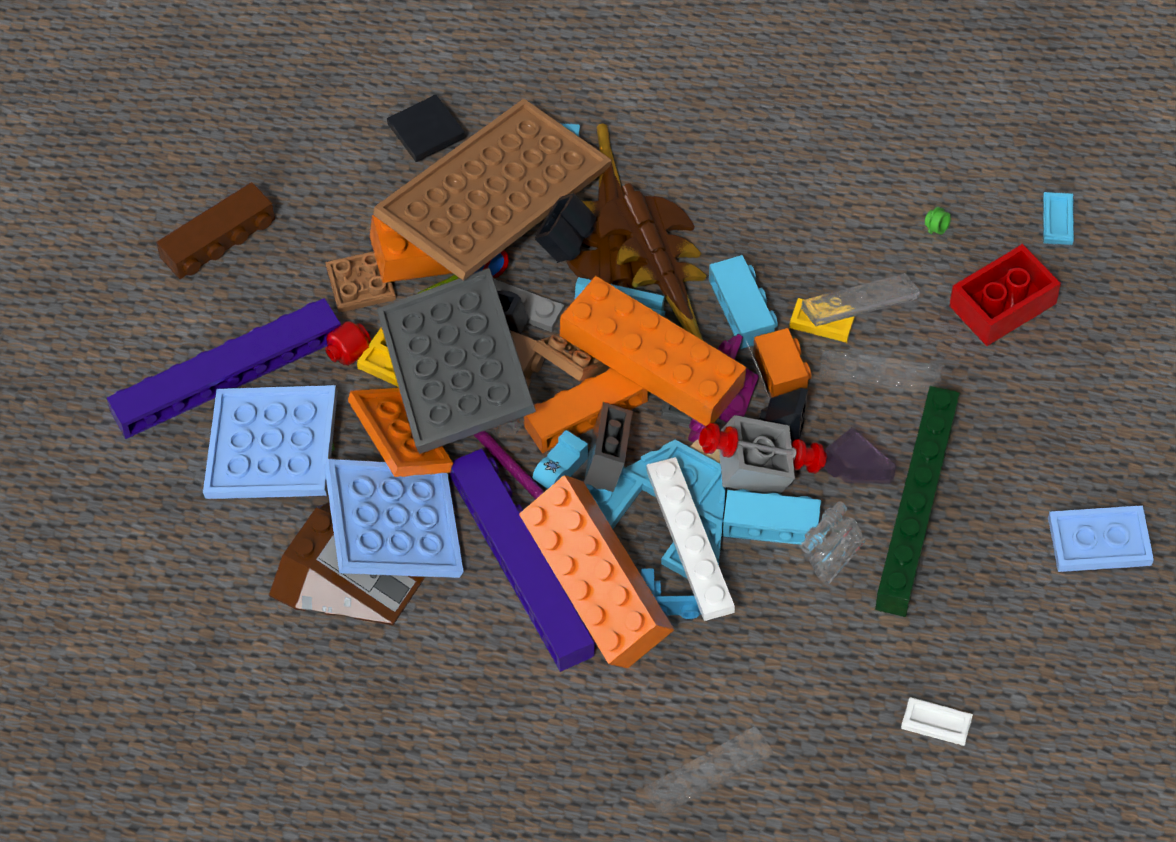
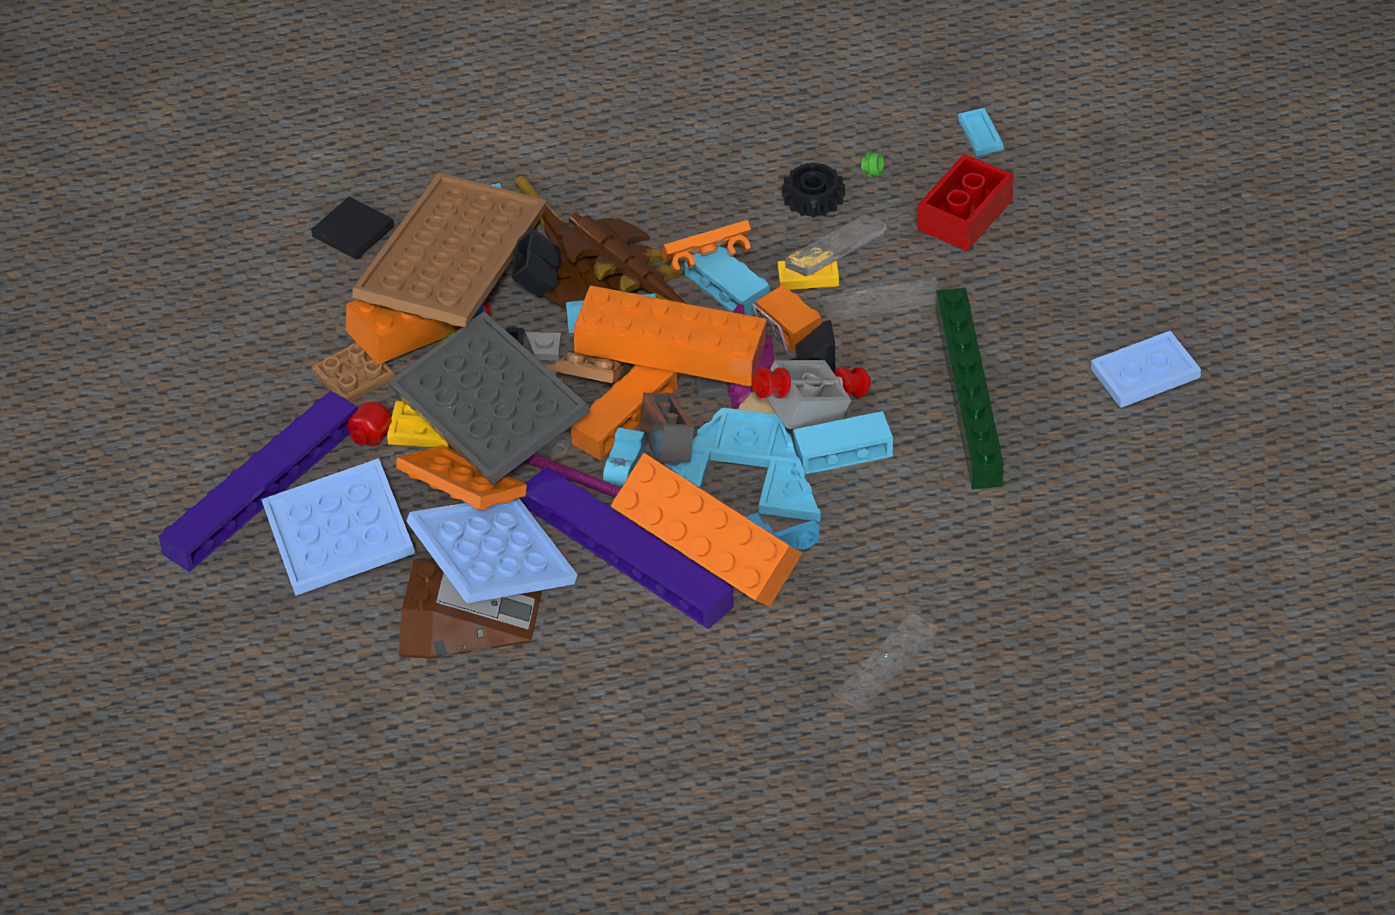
camera: 20 degrees left, 10 degrees down
(216, 231) = (191, 370): reddish brown brick -> none
(690, 539) = (779, 478): white plate -> none
(732, 262) = (706, 244): none -> orange plate
(839, 546) = (913, 447): clear plate -> none
(858, 460) = (900, 373): clear purple slope -> none
(867, 230) = (813, 189): none -> black gear
(936, 721) = (1072, 557): white tile -> none

